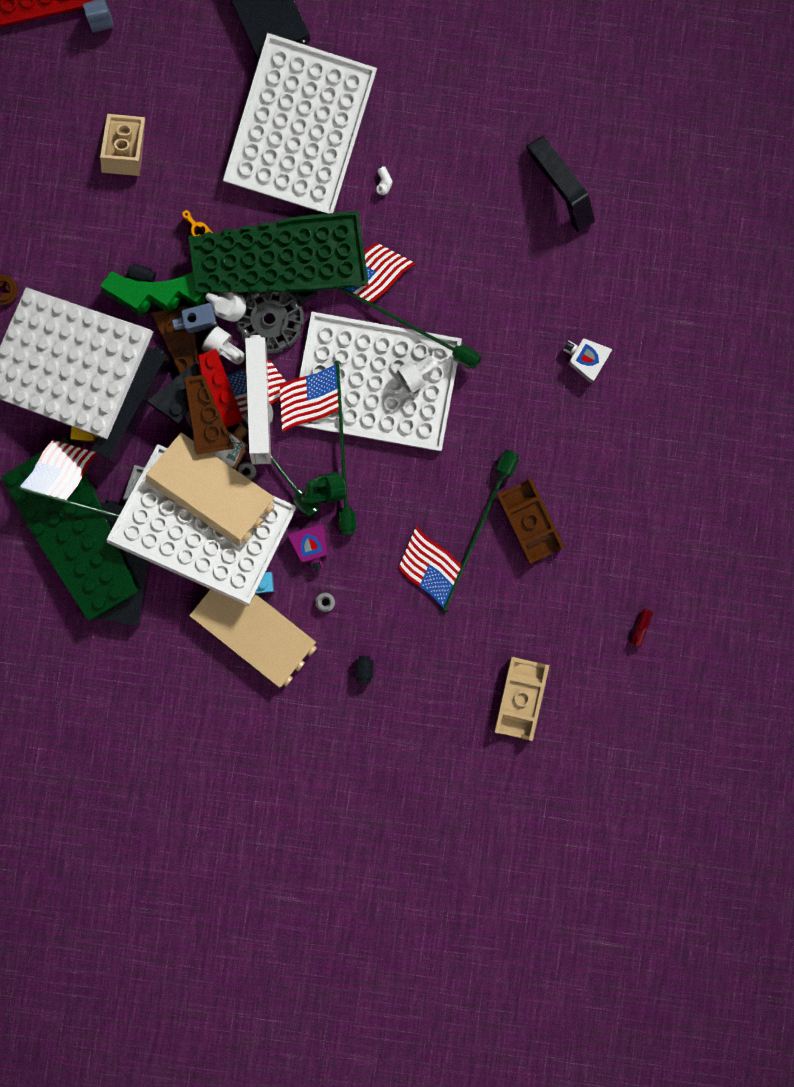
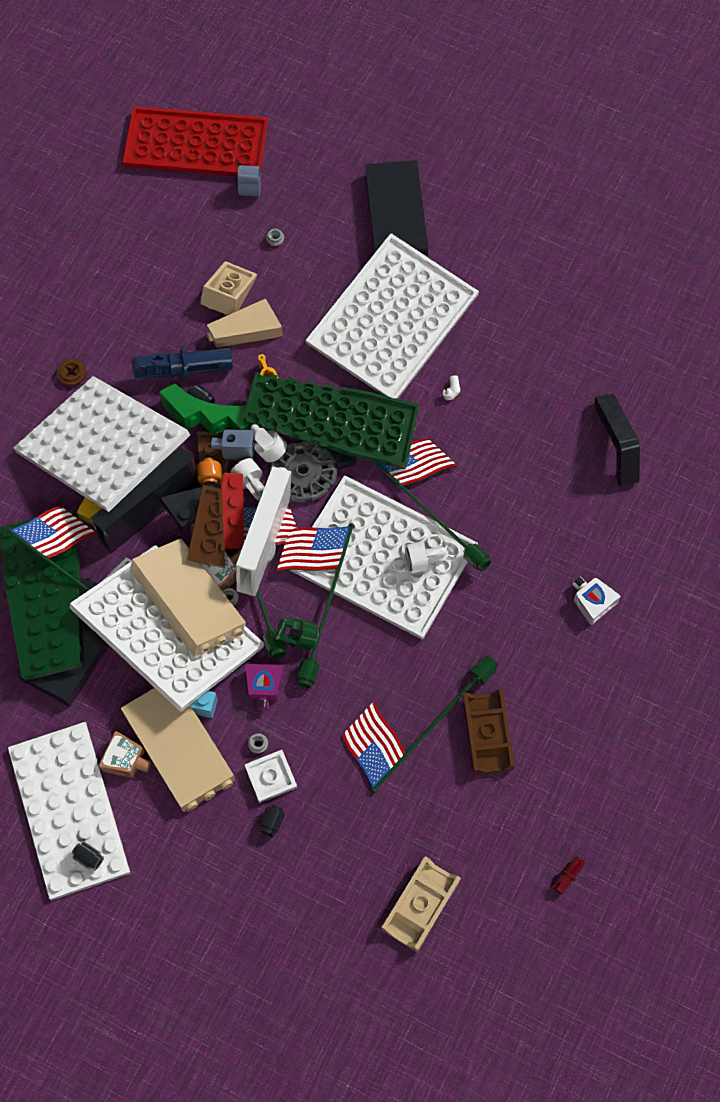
camera: 20 degrees right, 20 degrees down
(109, 247) = (181, 363): none -> dark blue piece
(145, 64) = (275, 233): none -> light grey plate
(157, 180) = (244, 326): none -> tan slope
(177, 720) = (66, 807): none -> white plate
(181, 354) = (209, 472): none -> orange head
(209, 657) = (124, 757): none -> torso
(214, 759) = (87, 856): none -> black brick
(348, 629) = (270, 776): none -> white plate

